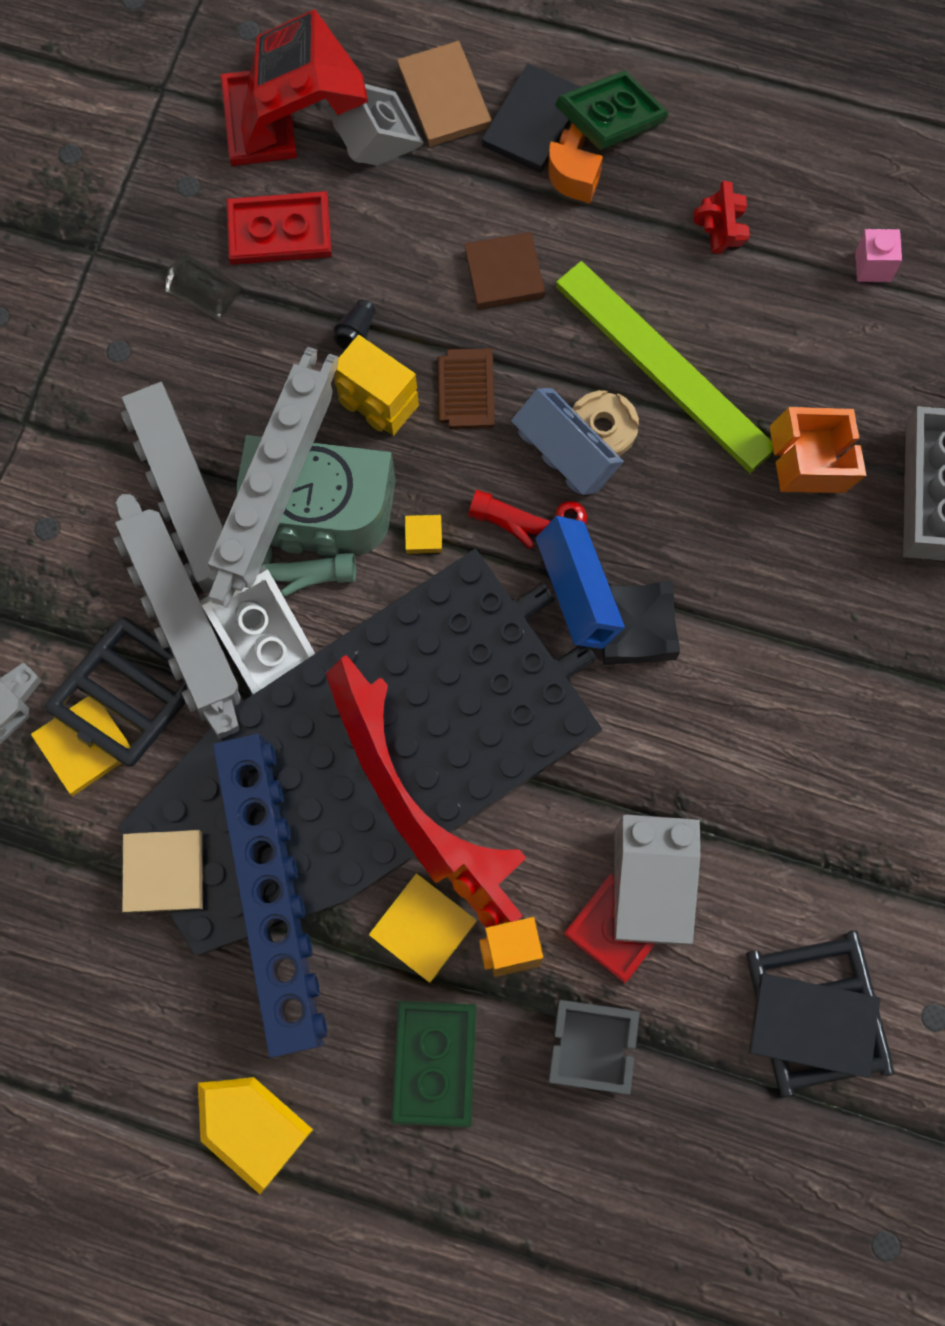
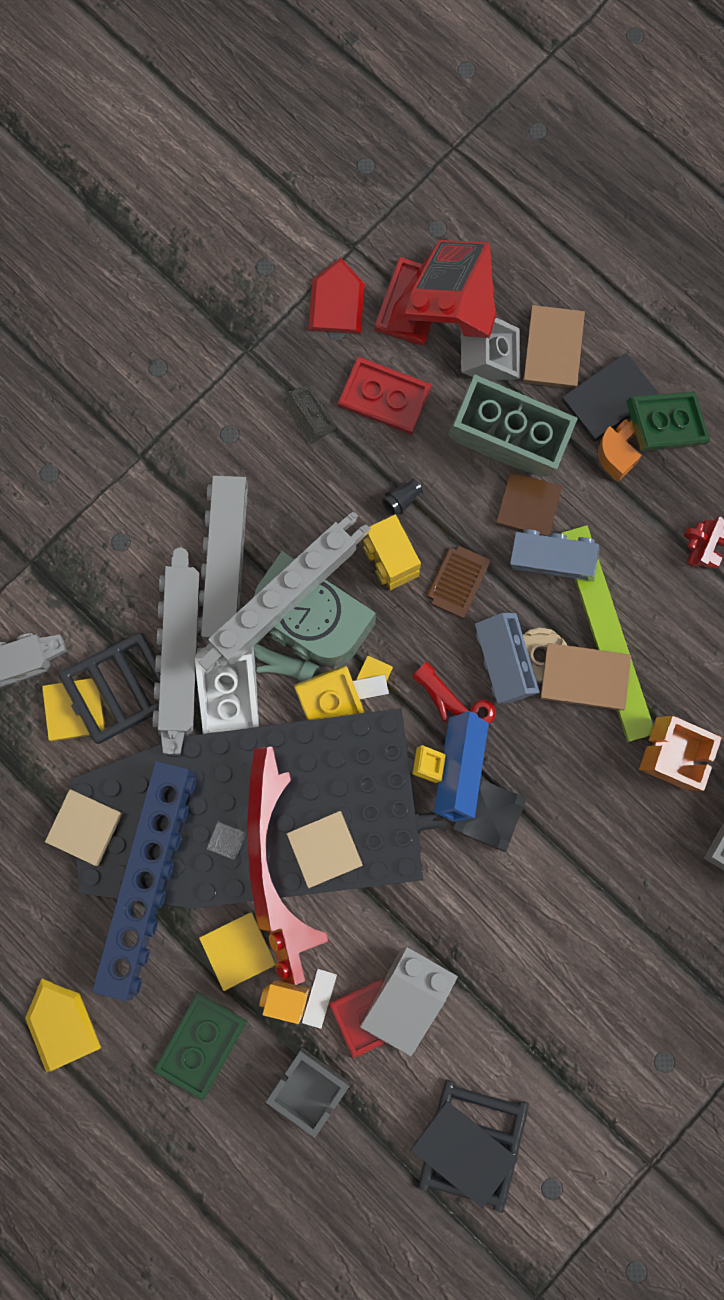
camera: 25 degrees right, 5 degrees up
(172, 152) = (337, 300): none -> red tile
(345, 799) = (226, 840): none -> clear tile
(381, 577) = (329, 695): none -> yellow tile
(417, 556) = (371, 687): none -> white sticker
(442, 187) = (511, 427): none -> sand green brick
(468, 749) = (324, 849): none -> tan tile
(537, 597) = (426, 764): none -> yellow tile
(550, 935) = (319, 998): none -> white sticker
(563, 305) = (555, 555): none -> sand blue brick
(666, 420) = (585, 676): none -> medium nougat tile

